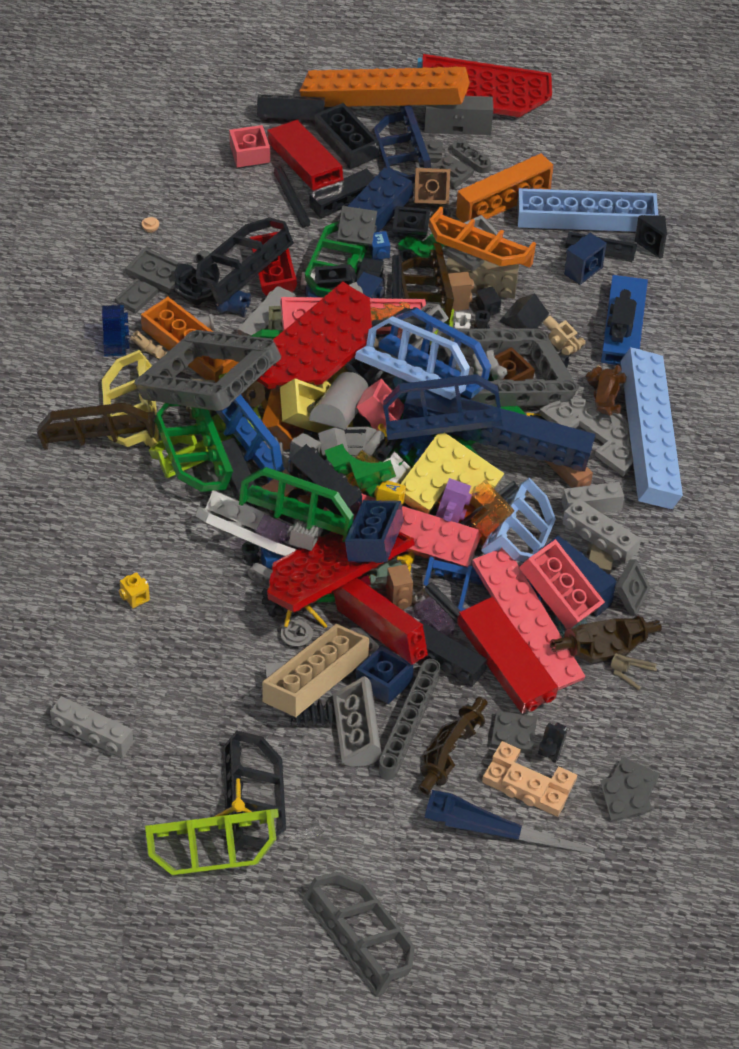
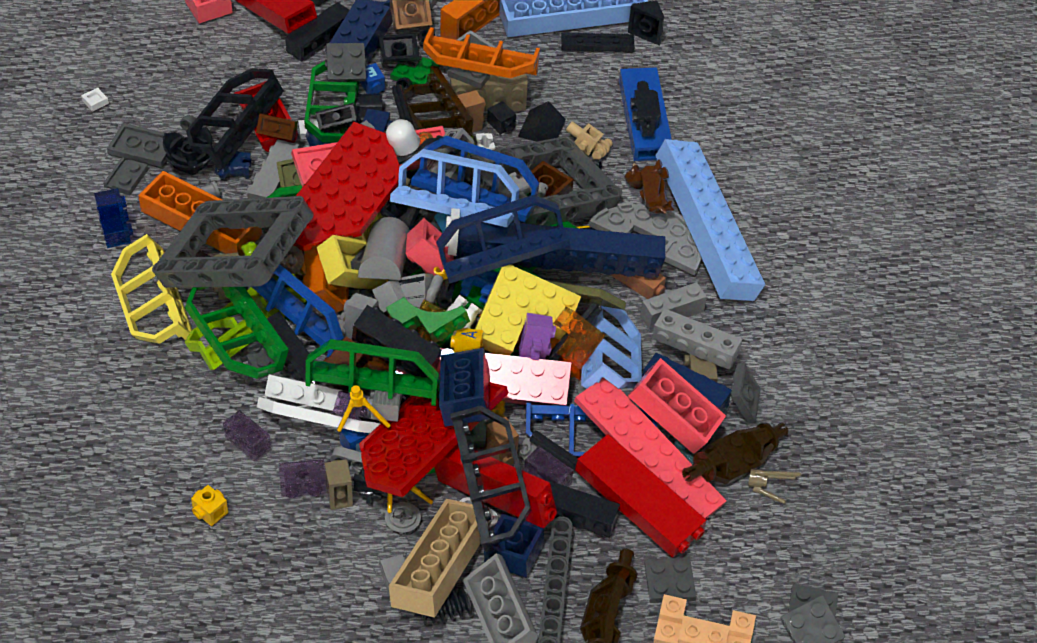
camera: 15 degrees left, 0 degrees up
(126, 222) = (94, 99): none -> white plate
(133, 422) = (162, 313): dark brown plate -> none
(147, 345) = (152, 228): tan piece -> none
(150, 224) = (121, 97): light nougat plate -> none
(181, 539) = (247, 436): none -> clear purple brick
(219, 583) = (302, 478): none -> clear purple brick
(247, 594) = (338, 484): none -> dark tan brick
(250, 553) = (330, 439): black bush -> none
(278, 274) = (277, 127): none -> reddish brown plate
(278, 524) = (358, 400): none -> yellow plant
(292, 197) = (265, 44): black axle -> none
(359, 603) = (472, 472): none -> black plate
(381, 303) = (402, 137): none -> white helmet
(400, 401) = (452, 244): none -> white plate
(482, 319) = (501, 138): black bush -> none
(515, 474) = (593, 295): none -> olive plate
(553, 741) = (717, 582): black hips -> none
(585, 258) = (587, 56): dark blue brick -> none

